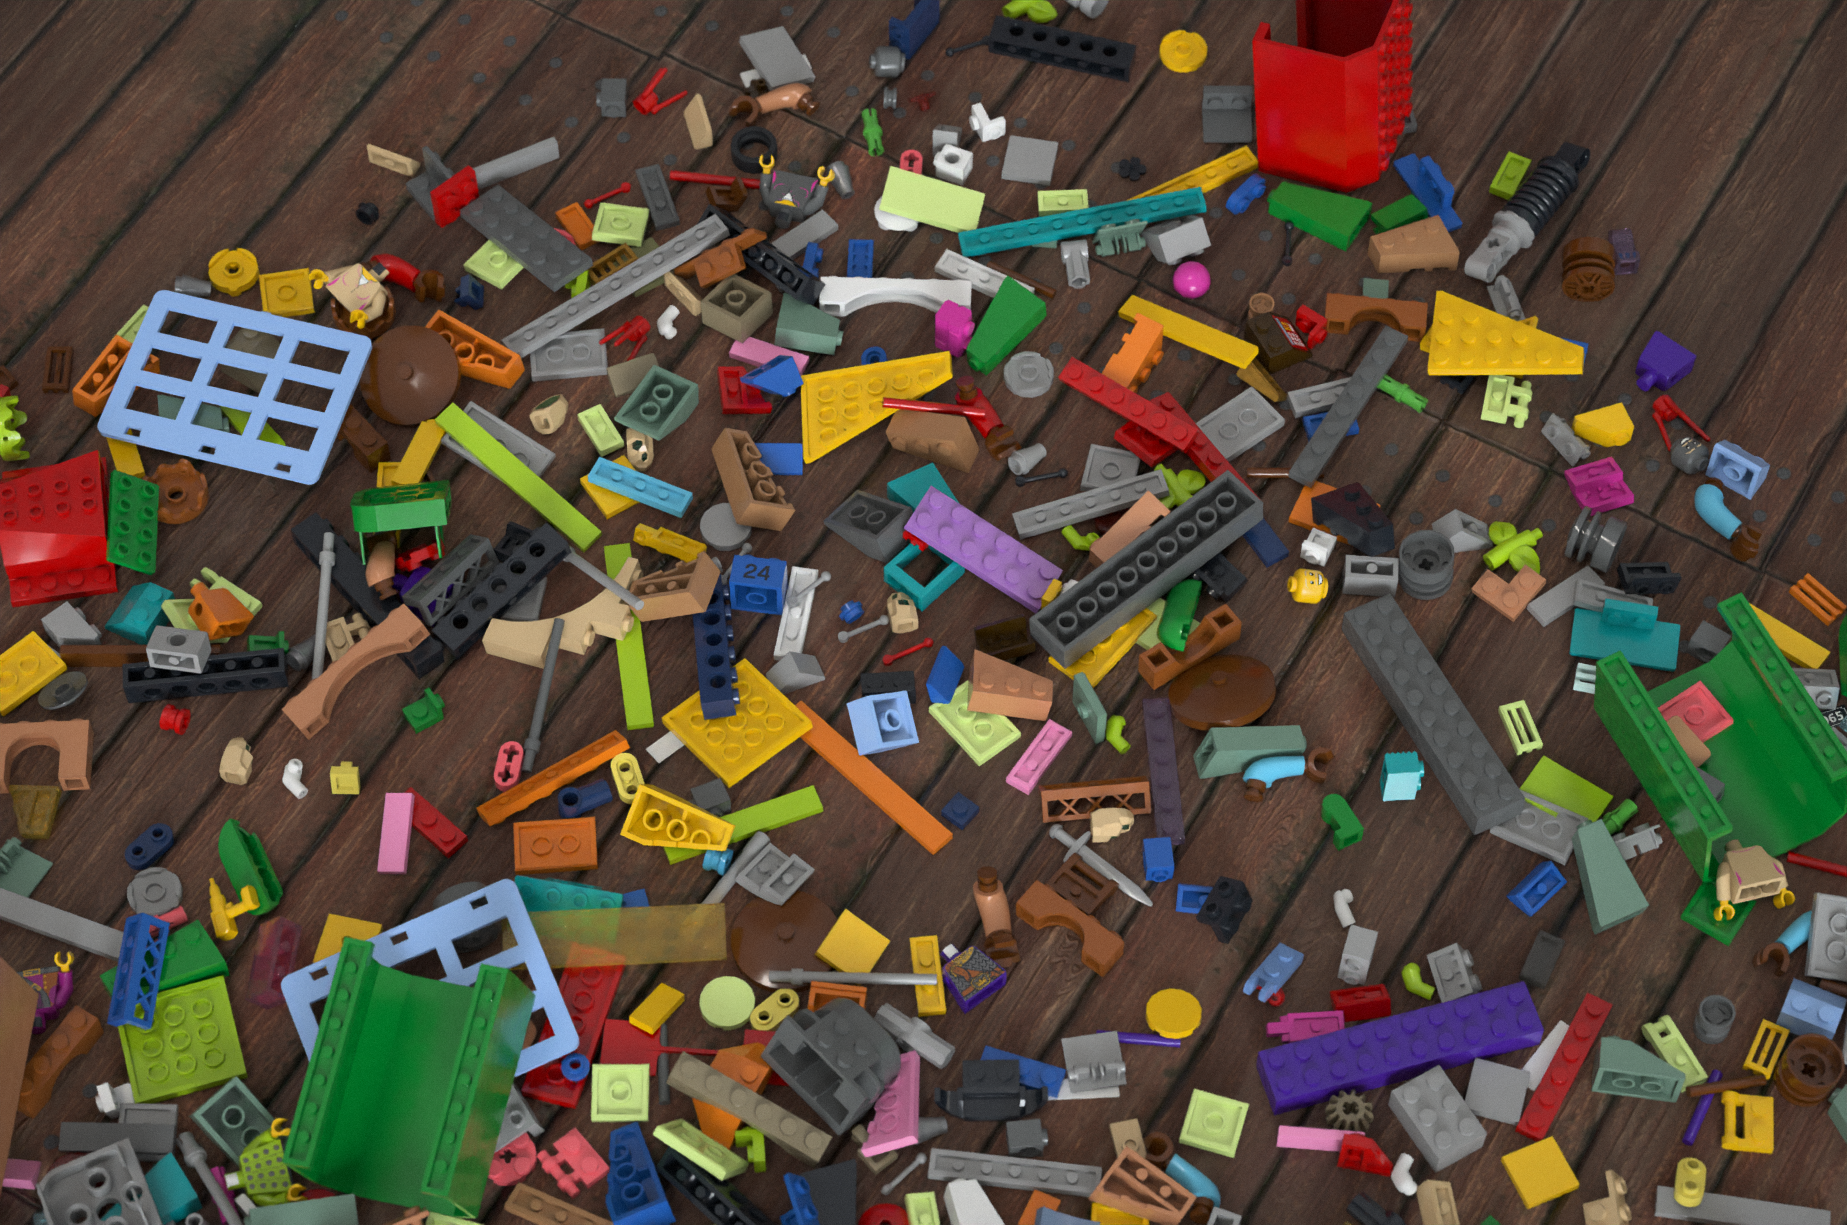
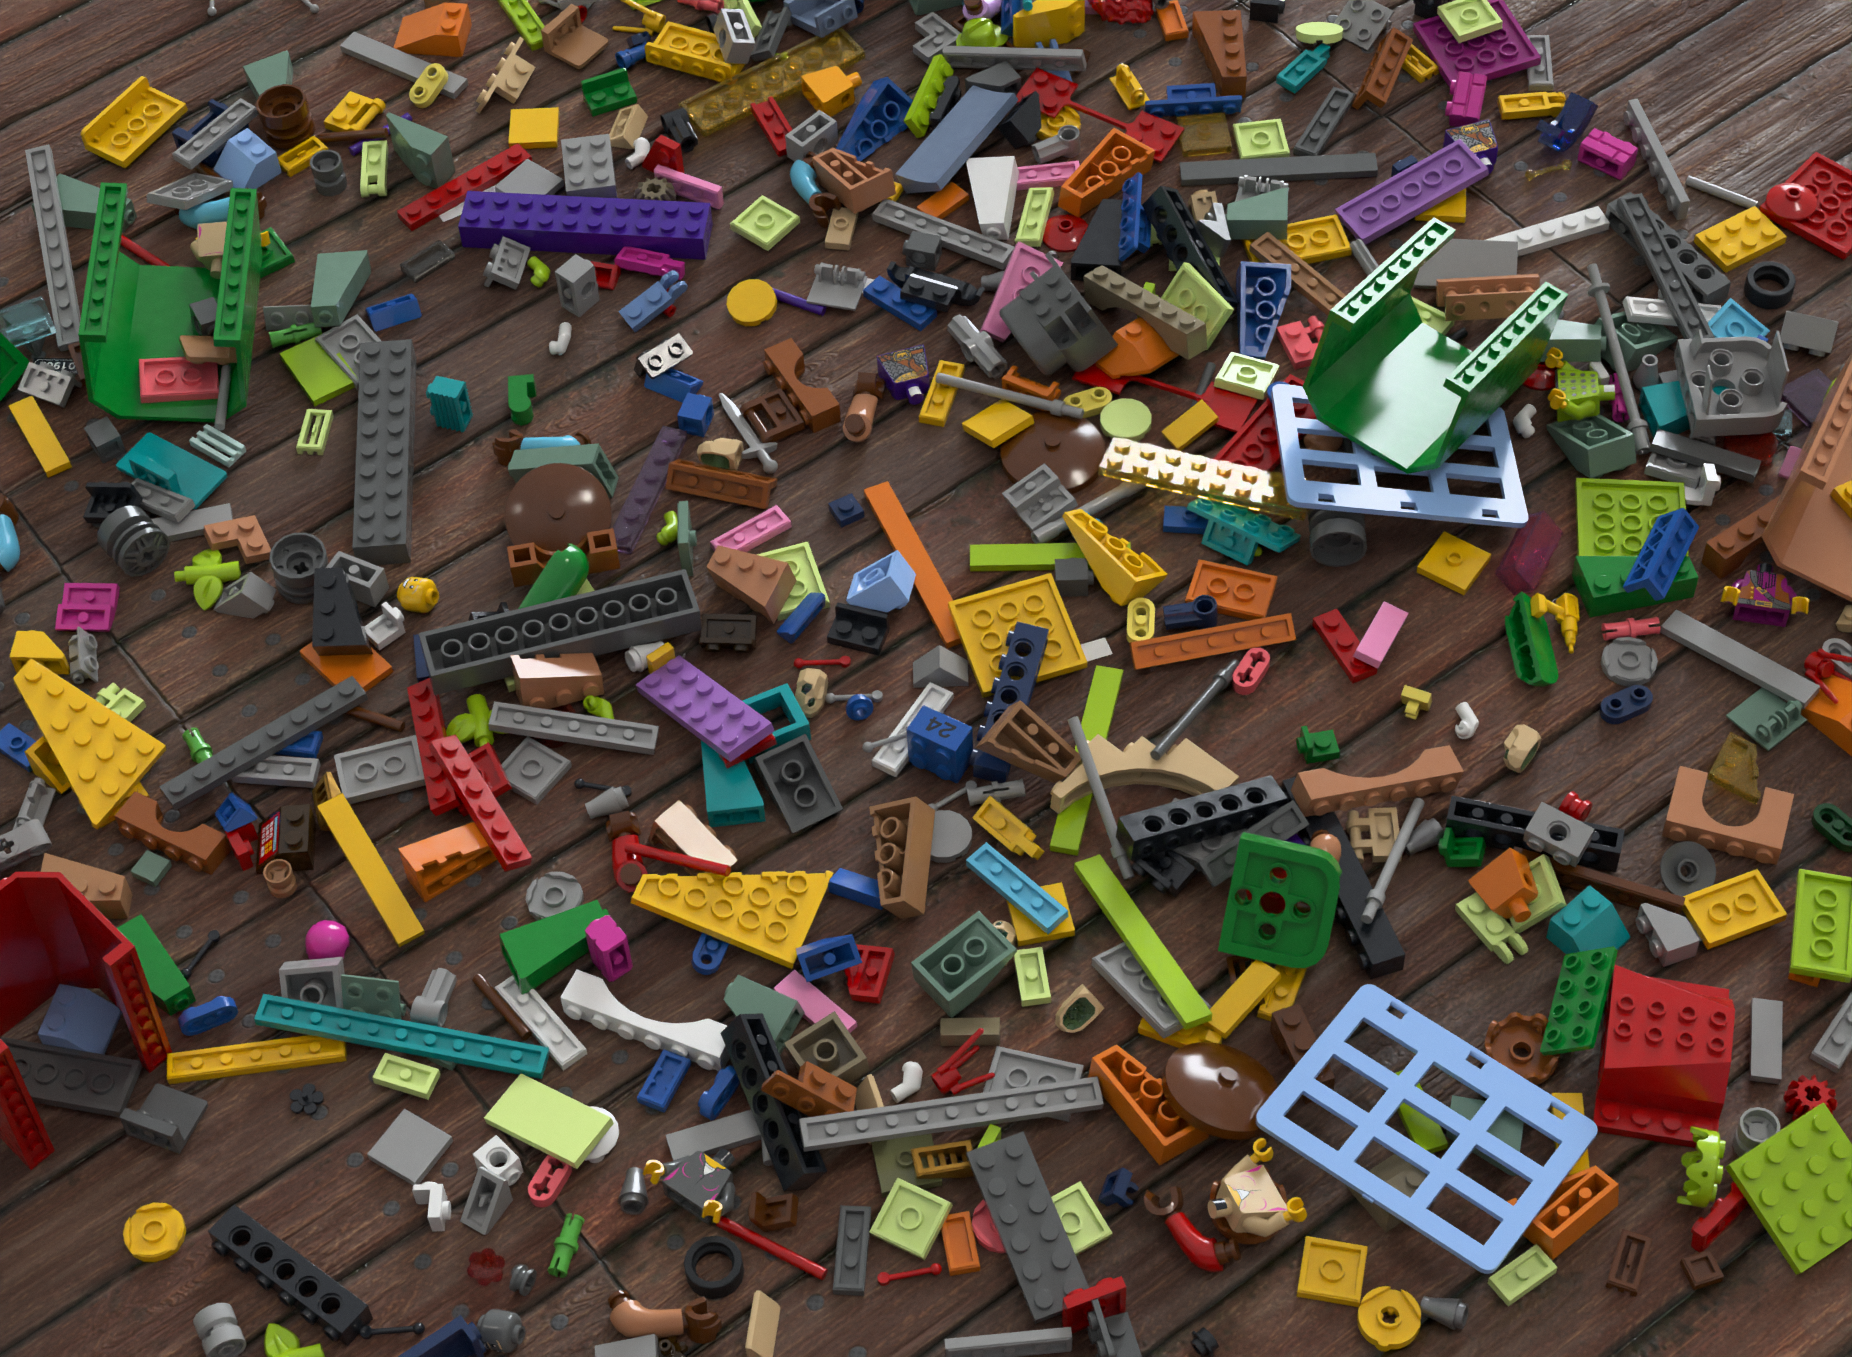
camera: 155 degrees left, 5 degrees down
(1331, 343) = (234, 813): none -> blue slope

